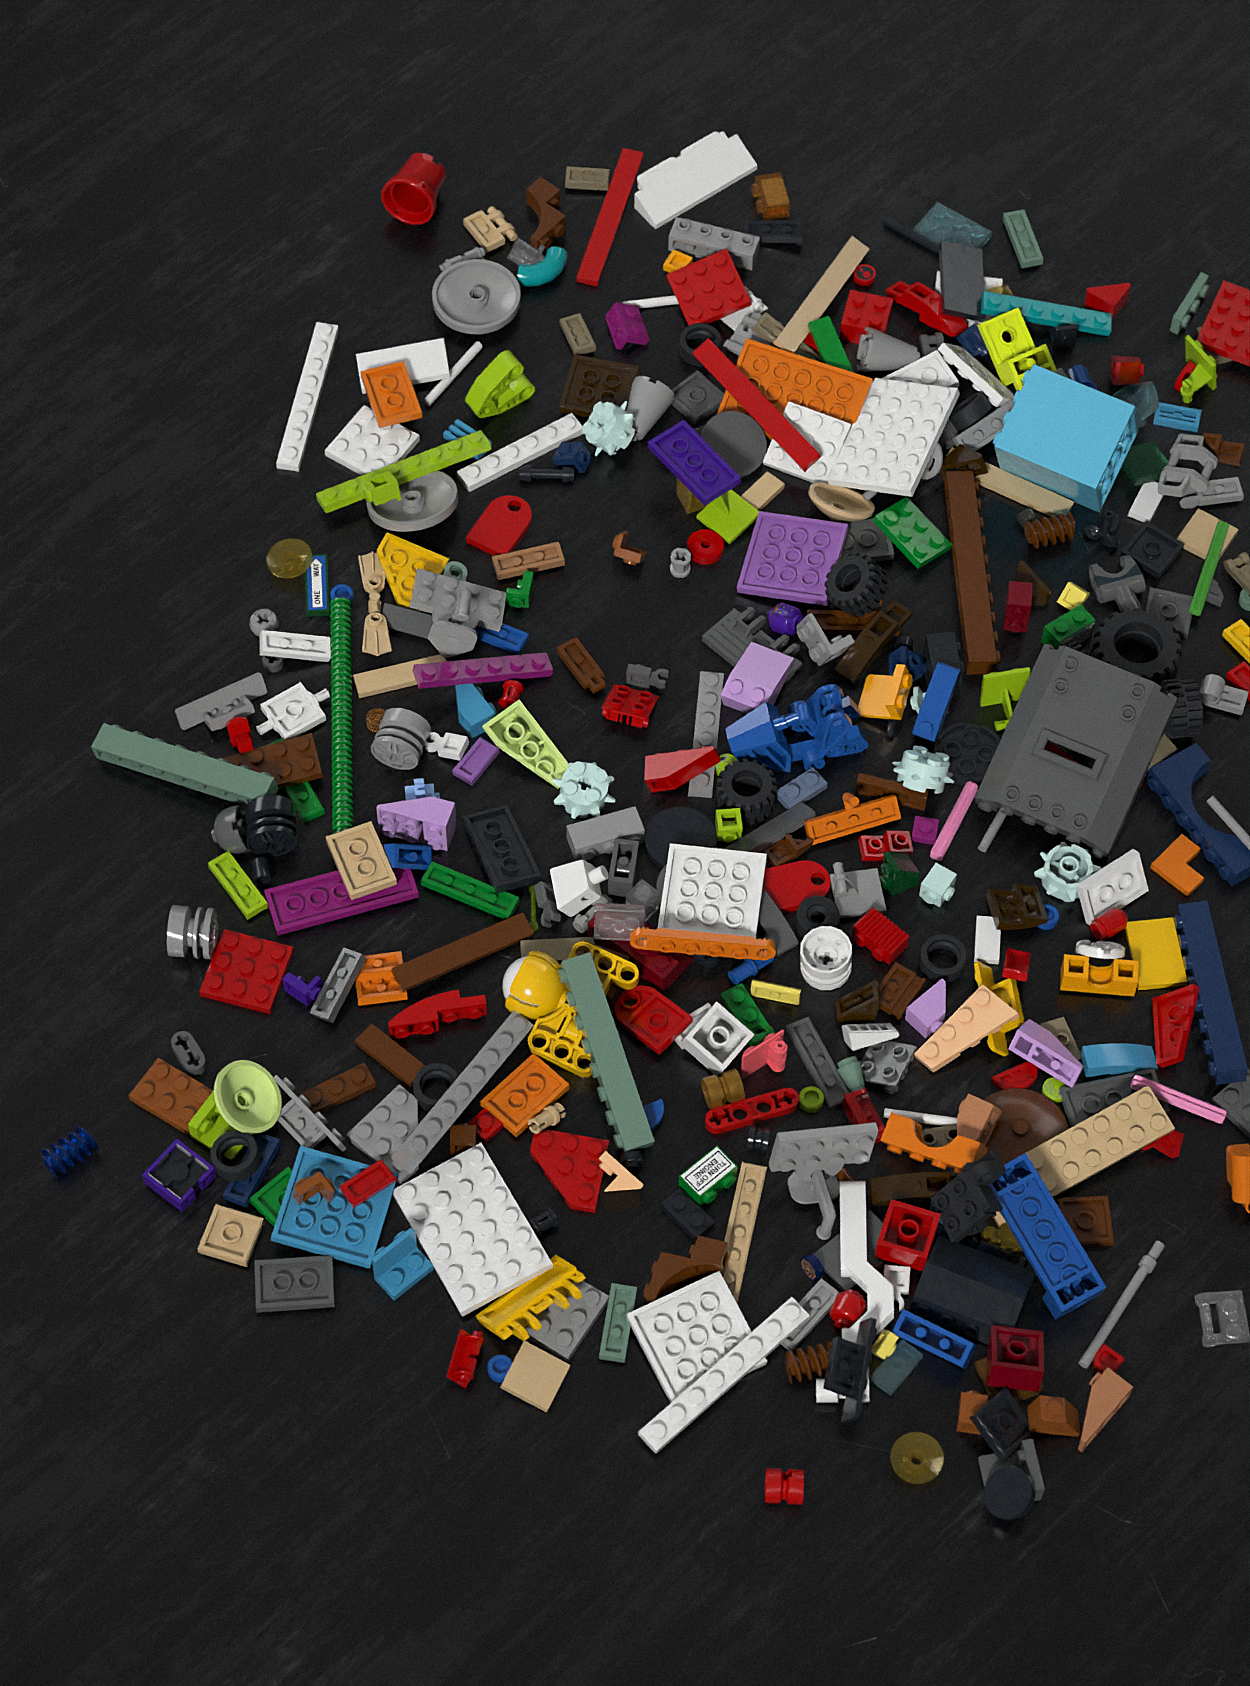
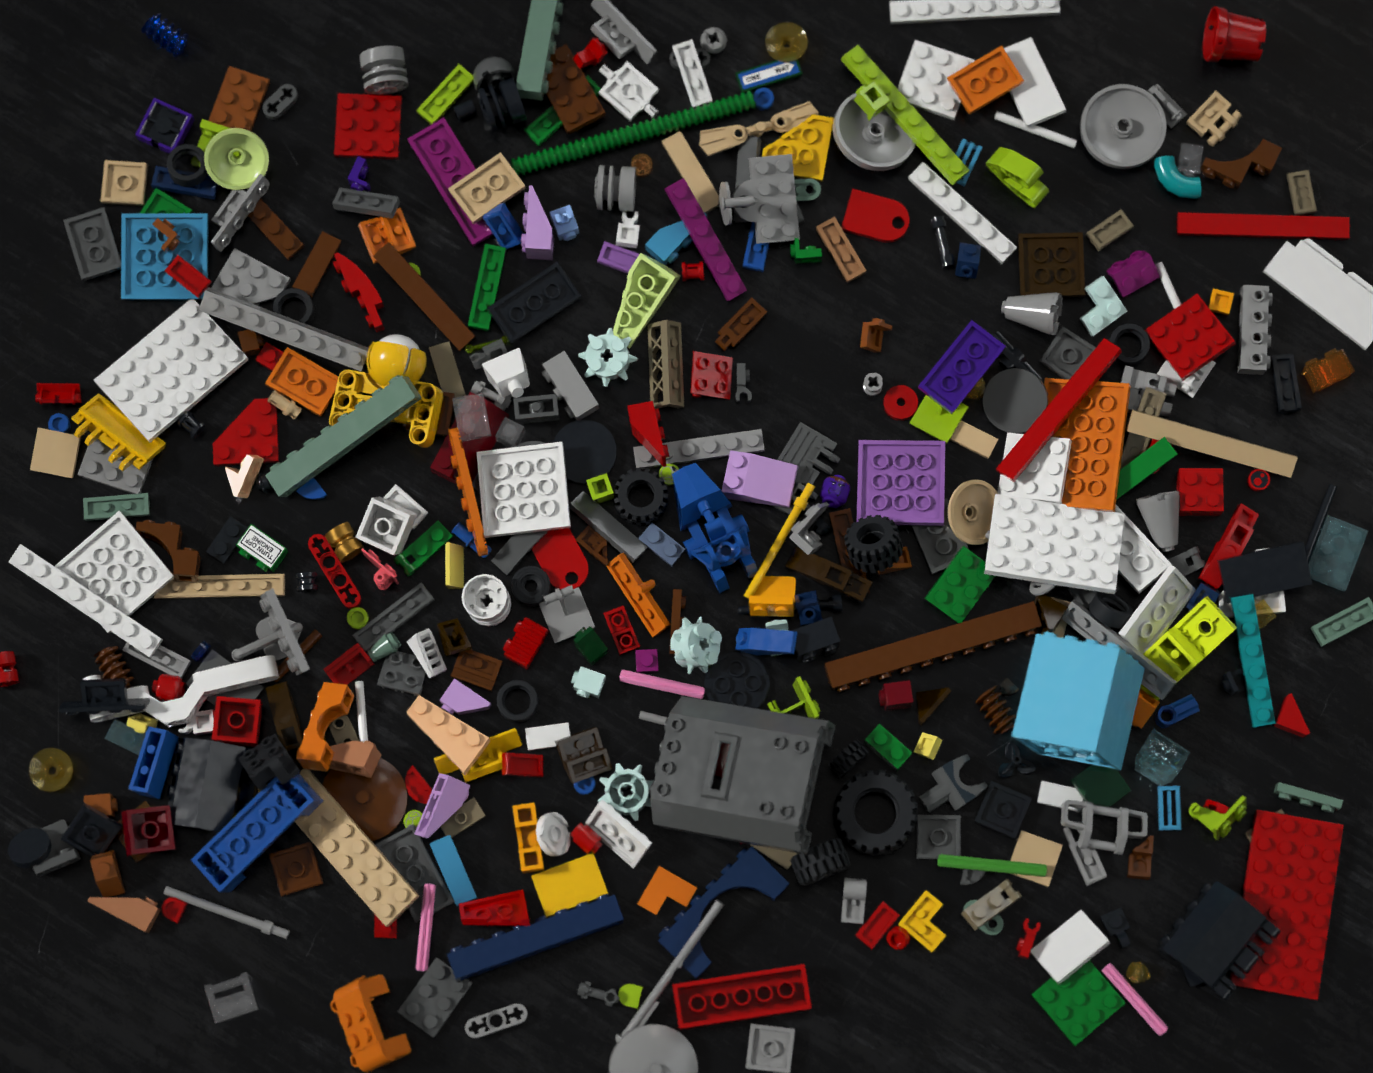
camera: 80 degrees right, 20 degrees up
(400, 1264) = (125, 324): dark azure bracket -> none
(604, 734) = (670, 363): none -> dark tan fence
(609, 427) = (999, 284): light aqua brick -> none
(653, 1018) = (399, 469): red tile -> none
(658, 354) = (1107, 306): none -> light aqua plate
(795, 646) = (799, 505): none -> yellow bar
(1126, 370) = (1201, 747): red slope -> none

